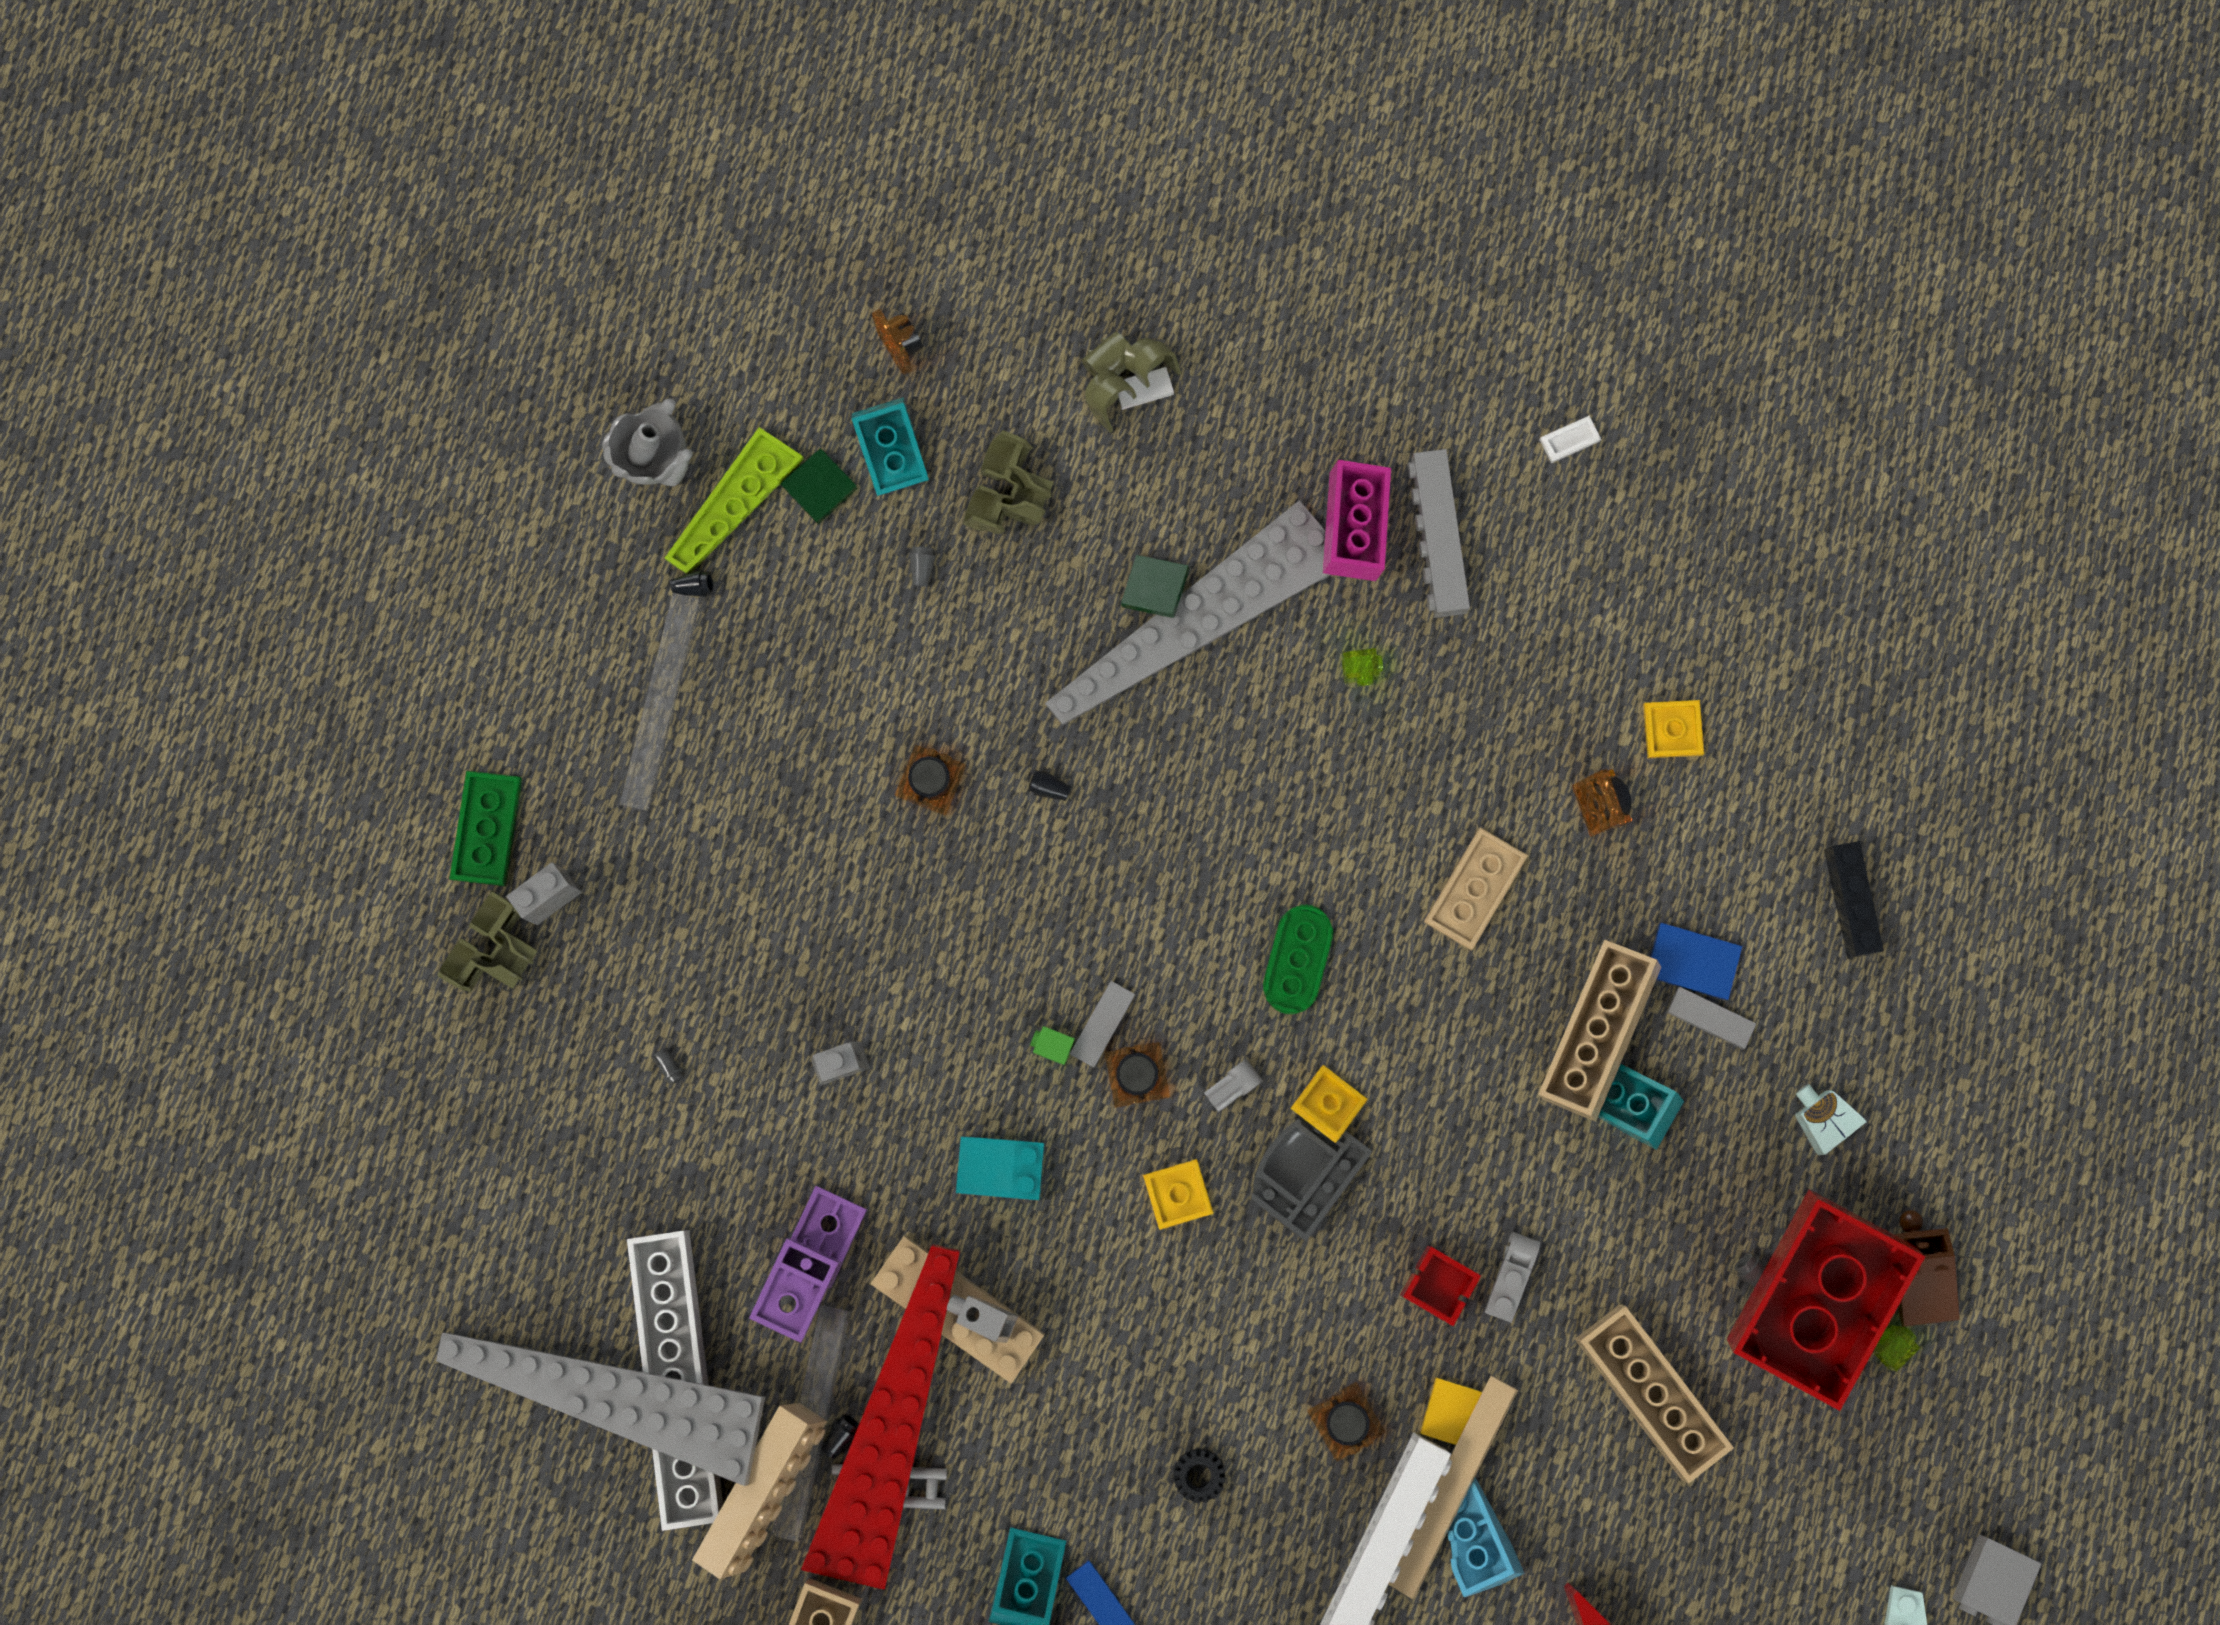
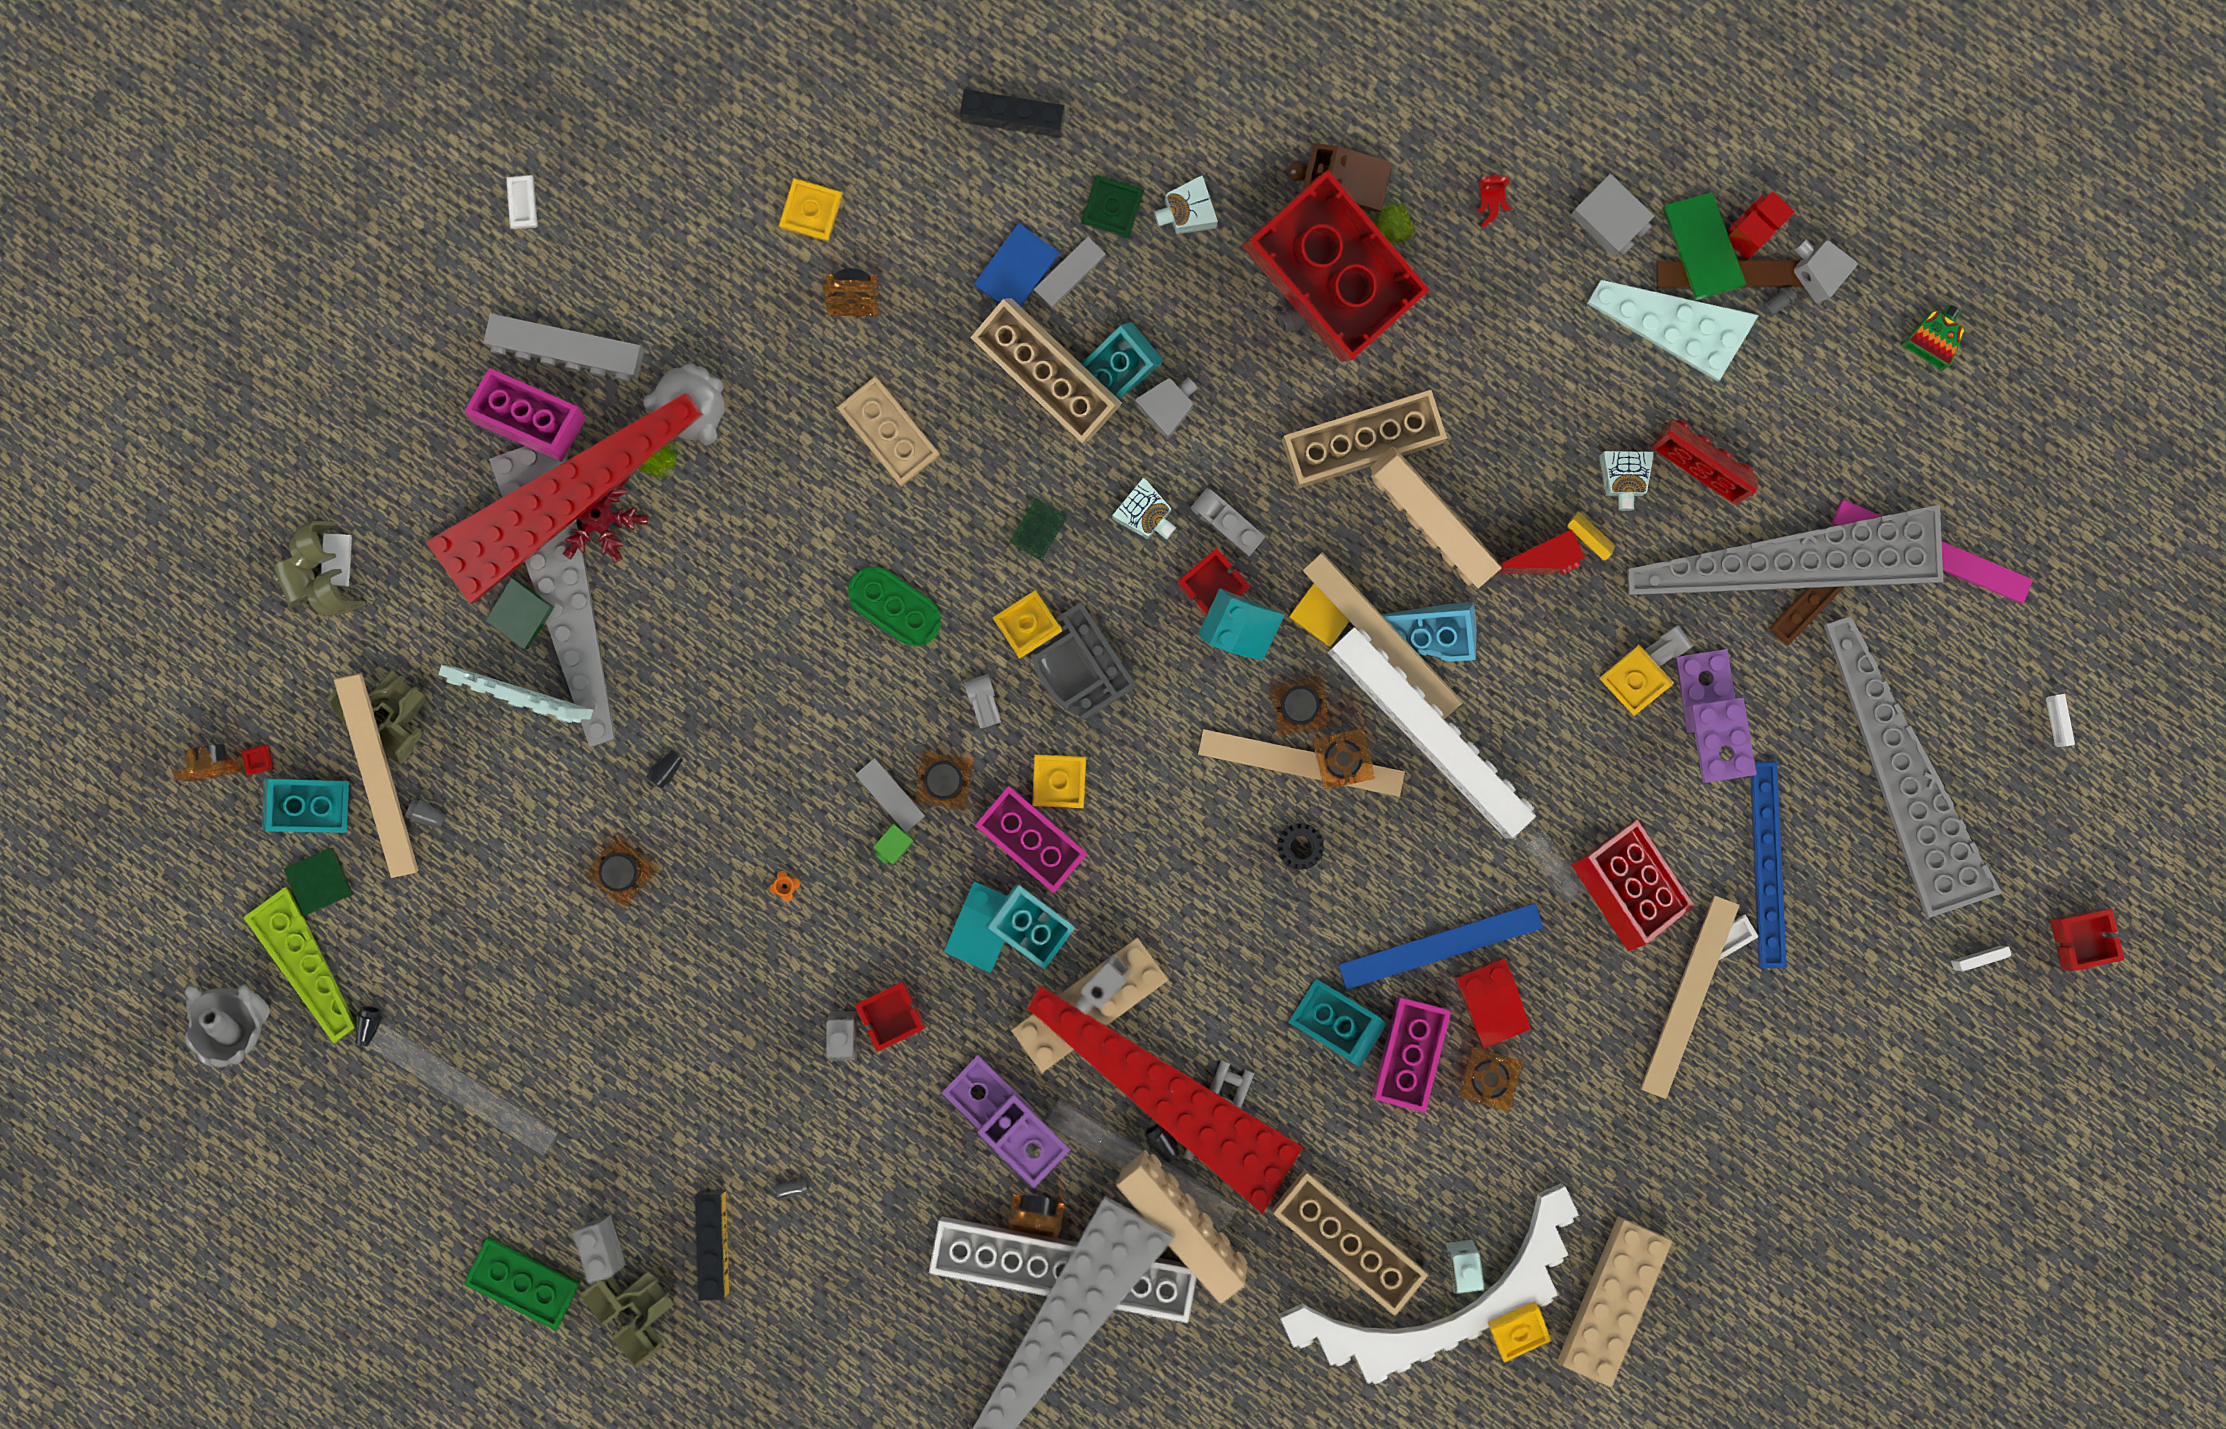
camera: 75 degrees left, 5 degrees up
(584, 1005) = (711, 1245): none -> black brick
(722, 1329) = (1036, 1215): none -> clear orange piece
(876, 1105) = (890, 1016): none -> red piece
(918, 384) = (257, 760): none -> red tile
(943, 504) = (376, 775): none -> tan tile
(968, 942) = (777, 887): none -> orange plate
(1017, 1218) = (1030, 926): none -> teal slope
(1072, 613) = (517, 695): none -> light aqua wing
(1107, 1187) = (1031, 839): none -> dark pink brick
(1239, 550) = (511, 530): none -> red wing
(1273, 633) = (601, 525): none -> dark red piece
(1287, 1446) = (1288, 760): none -> tan tile
(1307, 1490) = (1343, 759): none -> clear orange piece
(1408, 1329) = (1240, 625): none -> teal slope
(1428, 677) = (703, 390): none -> light grey piece
(1431, 1080) = (1038, 529): none -> clear green plate
(1490, 1186) = (1145, 512): none -> torso
(1597, 1504) = (1435, 517): none -> tan brick
(1611, 1169) = (1167, 405): none -> light grey torso
(1797, 1038) = (1112, 206): none -> dark green tile
(1968, 1439) = (1493, 193): none -> red piece

